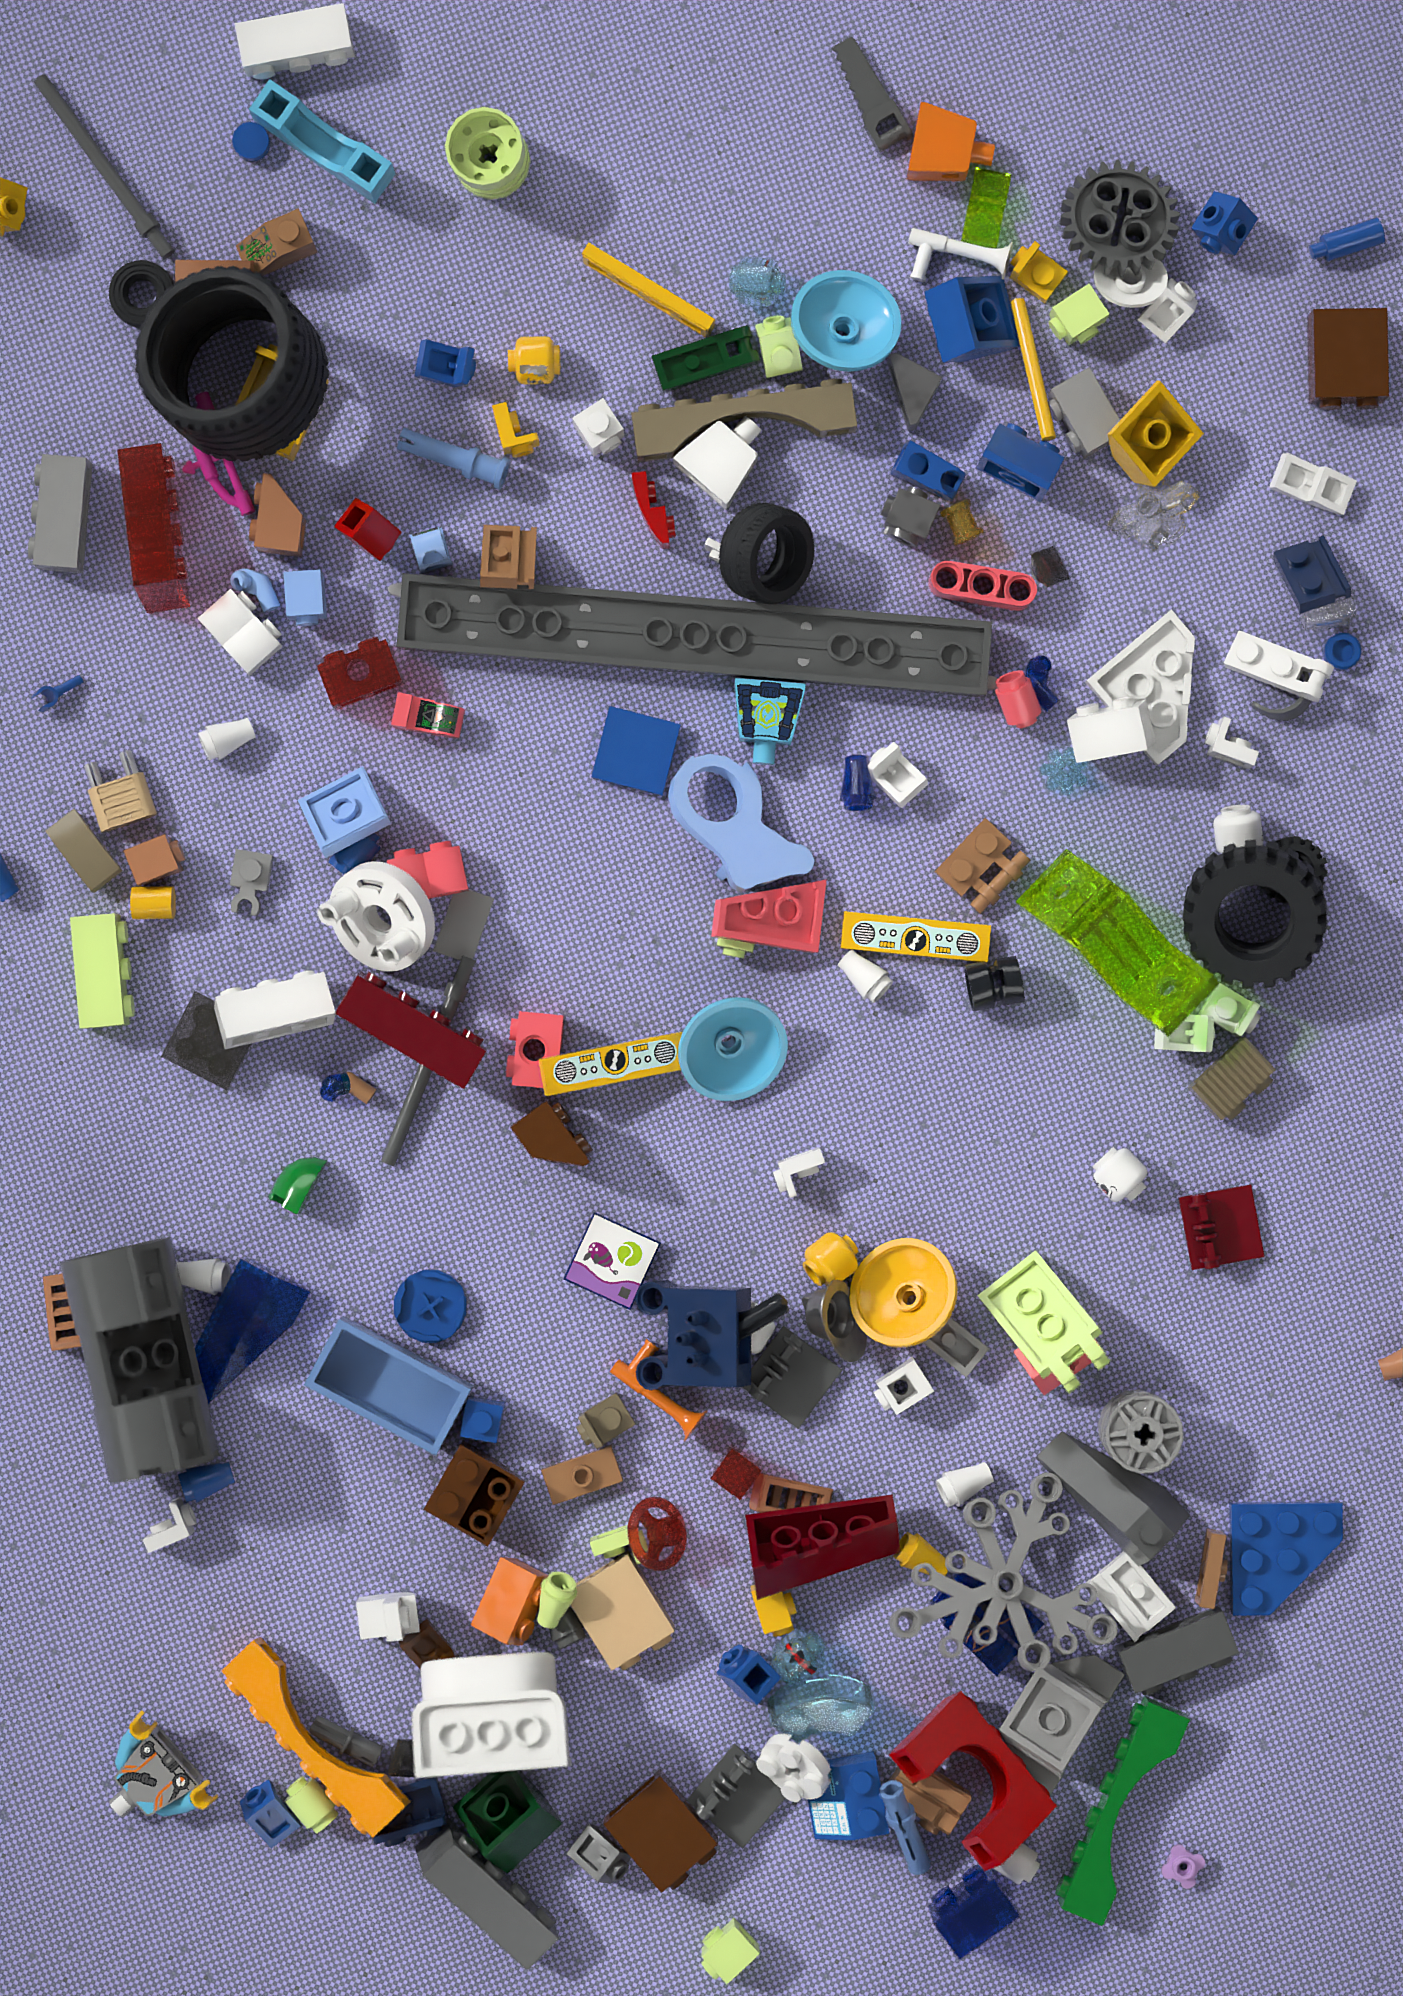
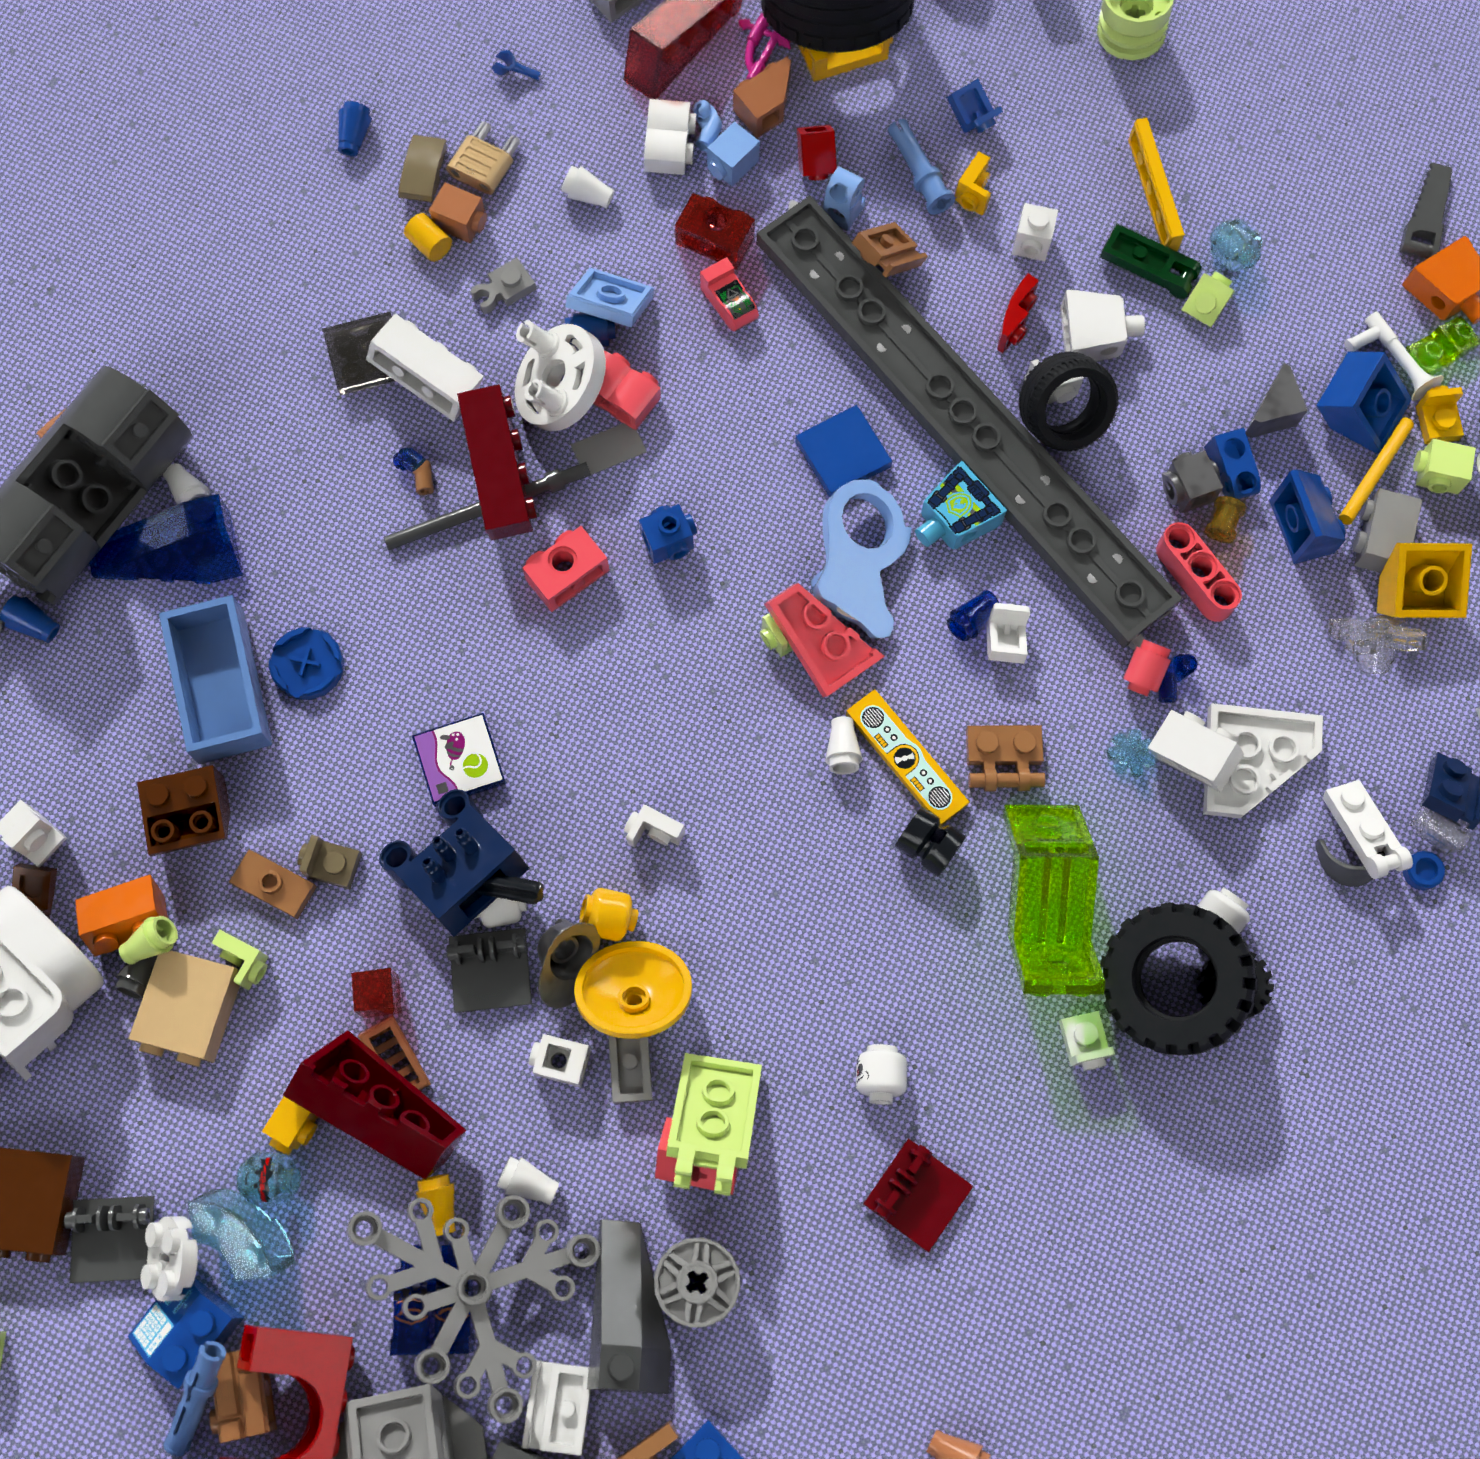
camera: 50 degrees right, 15 degrees down
(101, 971) = (347, 243): yellowish green brick -> none
(297, 1183) = (314, 497): green brick -> none
(482, 1419) = (250, 770): blue brick -> none
(534, 360) = (1035, 159): yellow head -> none
(549, 1138) = (510, 623): reddish brown slope -> none
(583, 964) = (668, 533): none -> blue brick
(610, 1064) = (605, 624): tile -> none
(627, 1374) = (385, 922): orange piece -> none
(660, 1532) = (288, 985): clear red piece -> none
(743, 1063) = (678, 711): medium azure dish -> none
(747, 1674) = (218, 1149): blue brick -> none
(820, 410) = (1196, 357): dark tan arch -> none
(847, 304) = (1274, 317): medium azure dish -> none
(1048, 567) = (1258, 605): clear smoke slope -> none
(1193, 1035) = (1035, 1020): bracket -> none
(1232, 1079) = (1038, 1090): dark tan brick -> none
(1235, 751) = (1270, 854): white bracket -> none

